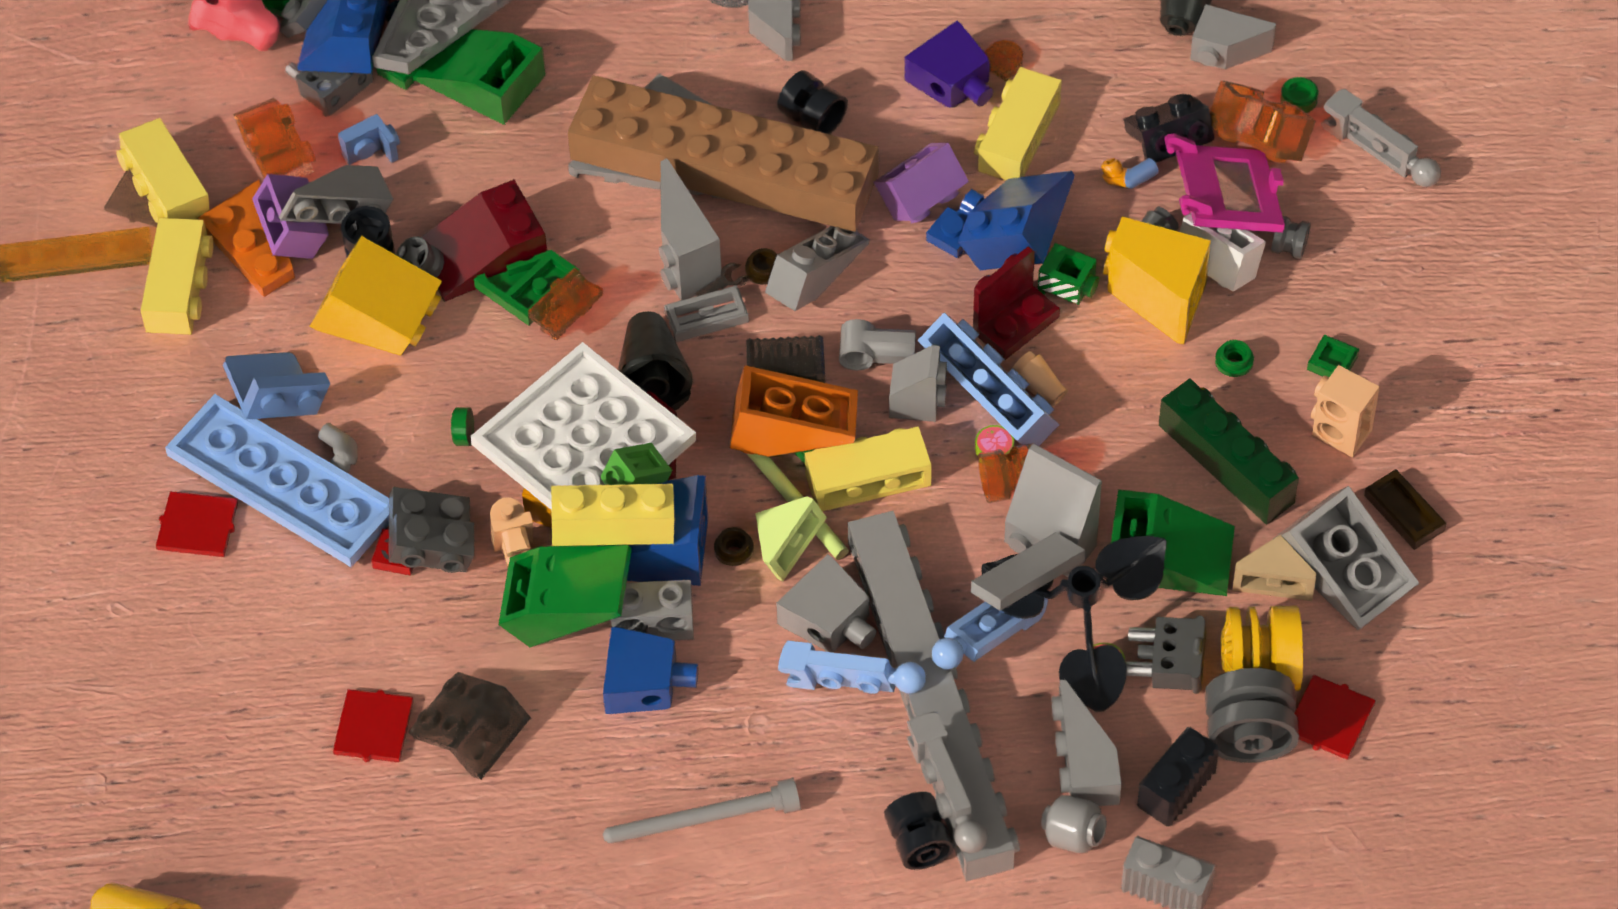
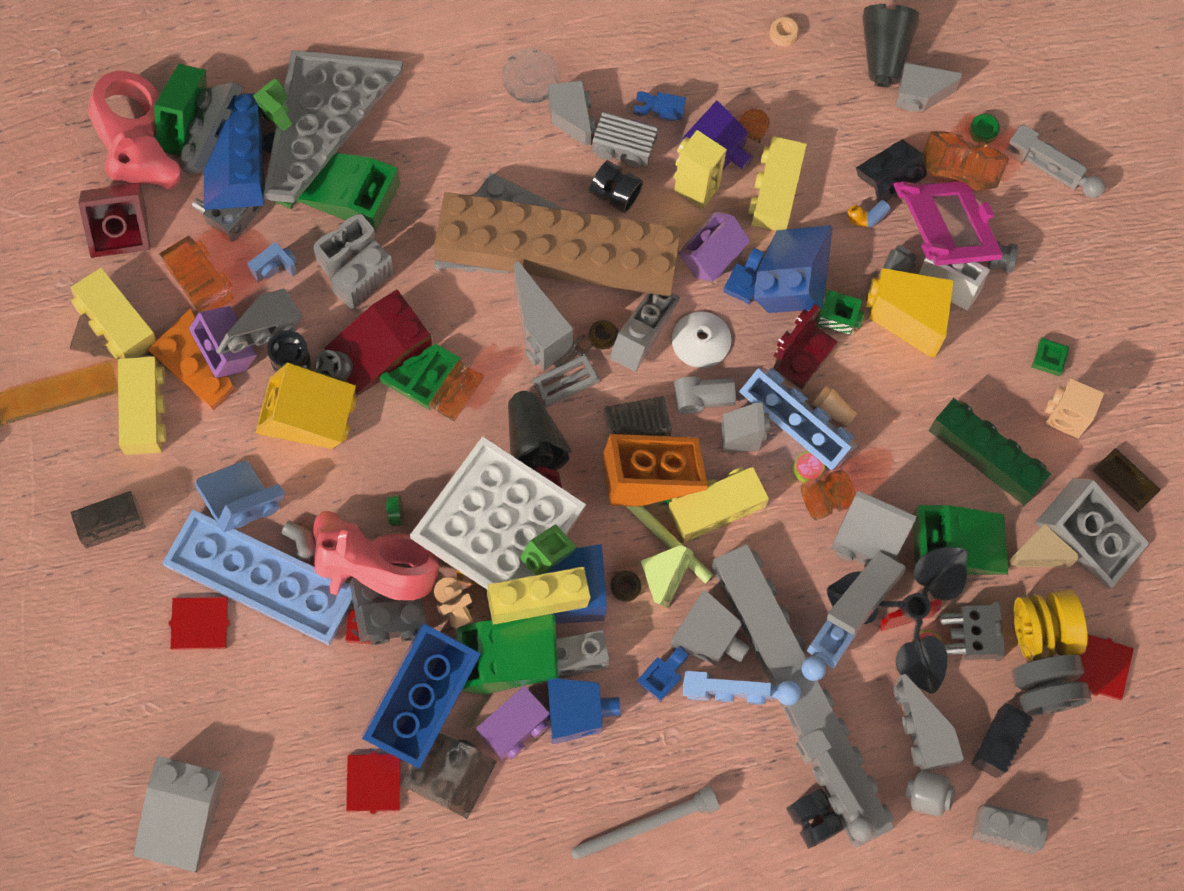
camera: 15 degrees left, 15 degrees up
(110, 392) = (108, 519): none -> clear smoke brick
(126, 720) = (177, 813): none -> light grey slope
(188, 74) = (114, 220): none -> dark red slope
(435, 475) = (347, 552): none -> coral animal
(447, 621) = (420, 695): none -> blue slope
(461, 129) = (341, 246): none -> light grey brick
(477, 165) = (362, 275): none -> light grey brick
(559, 678) = (514, 724): none -> medium lavender brick
(759, 651) = (662, 676): none -> blue plate
(835, 55) = (624, 140): none -> light grey brick
(887, 301) = (701, 352): none -> white dish
(893, 23) = (663, 105): none -> blue plate
(916, 89) = (699, 169): none -> light yellow brick
(1068, 620) = (897, 619): none -> red piece
(1234, 350) = (980, 360): green plate -> none

